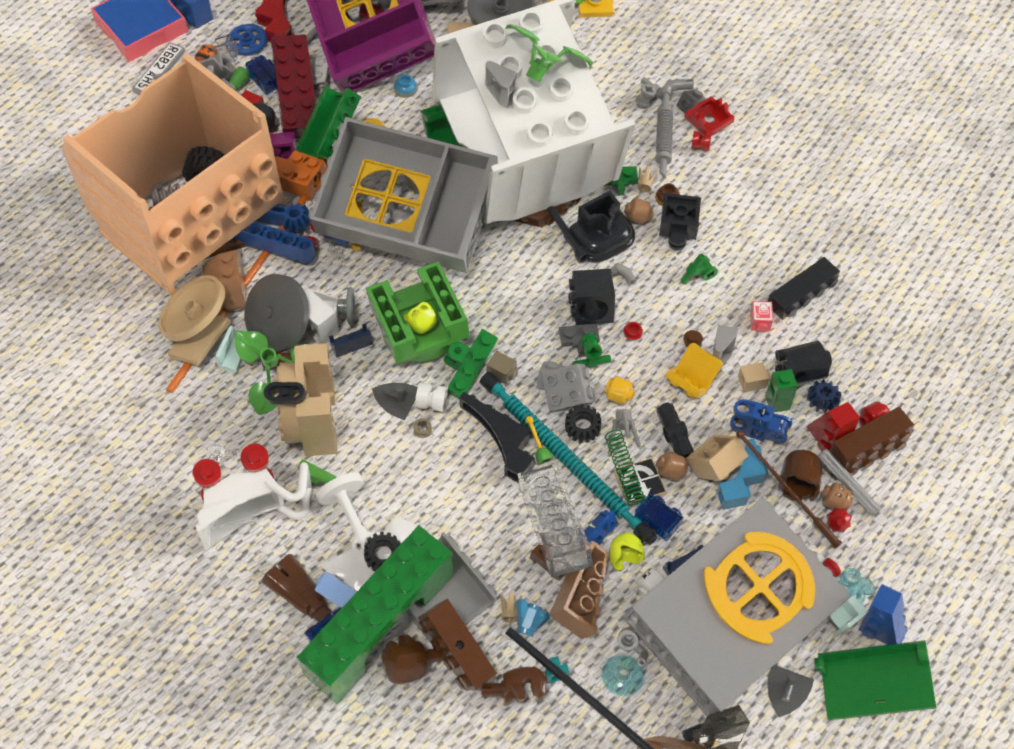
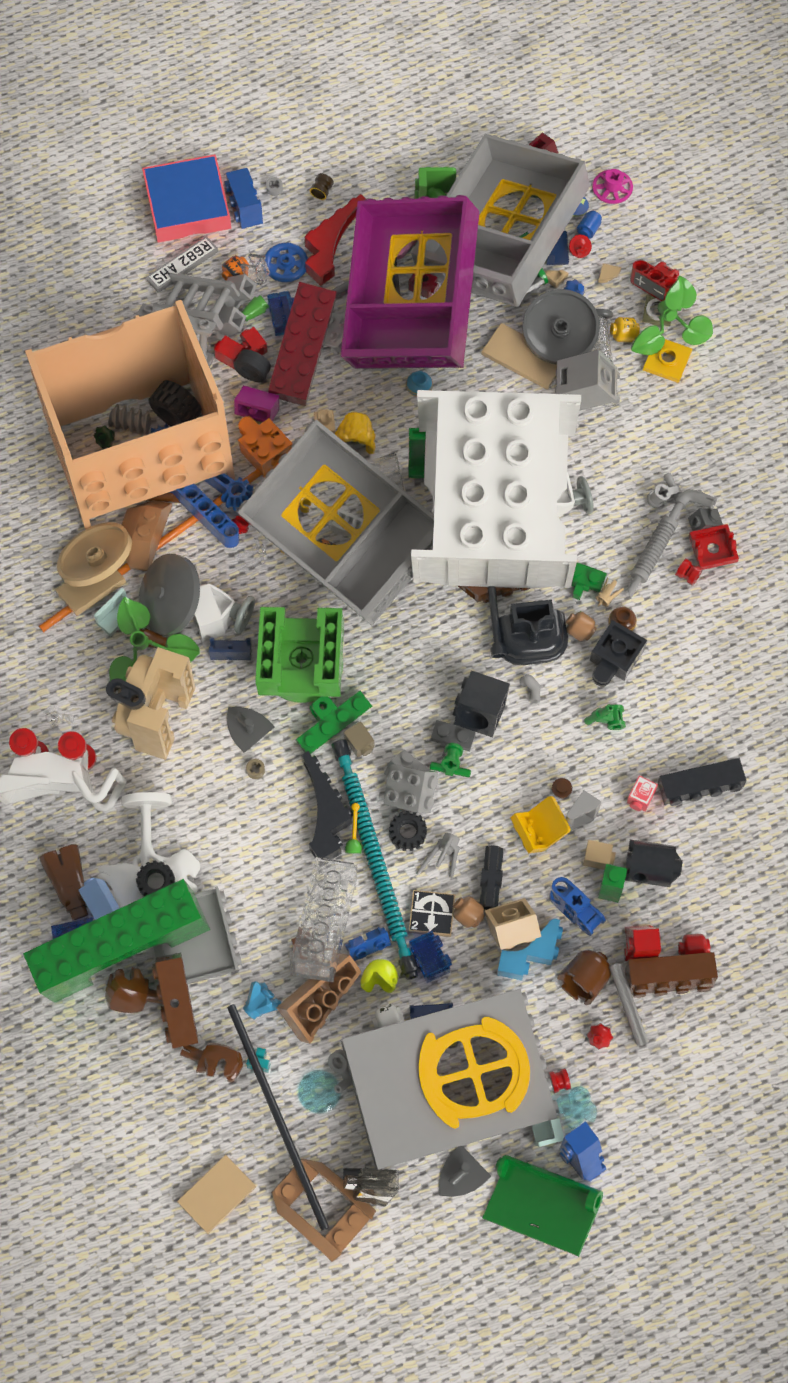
camera: 25 degrees right, 10 degrees up
(318, 474) = (134, 773): bright green tile -> none
(325, 122) = (312, 402): green panel -> none
(421, 318) = (298, 661): neon yellow helmet -> none
(431, 397) = (277, 742): white wheel -> none
(505, 82) = (456, 470): light grey tile -> none
(509, 610) = (244, 985): tan piece -> none
(538, 66) = (502, 465): bright green plant -> none
(617, 443) = (417, 896): green piece -> none
(619, 390) = (460, 812): yellow head -> none
(633, 331) = (507, 754): red plate -> none
(816, 520) = (575, 1028): reddish brown piece -> none
(824, 396) = (650, 900): dark blue gear -> none
(836, 496) = (609, 1012): medium nougat head -> none

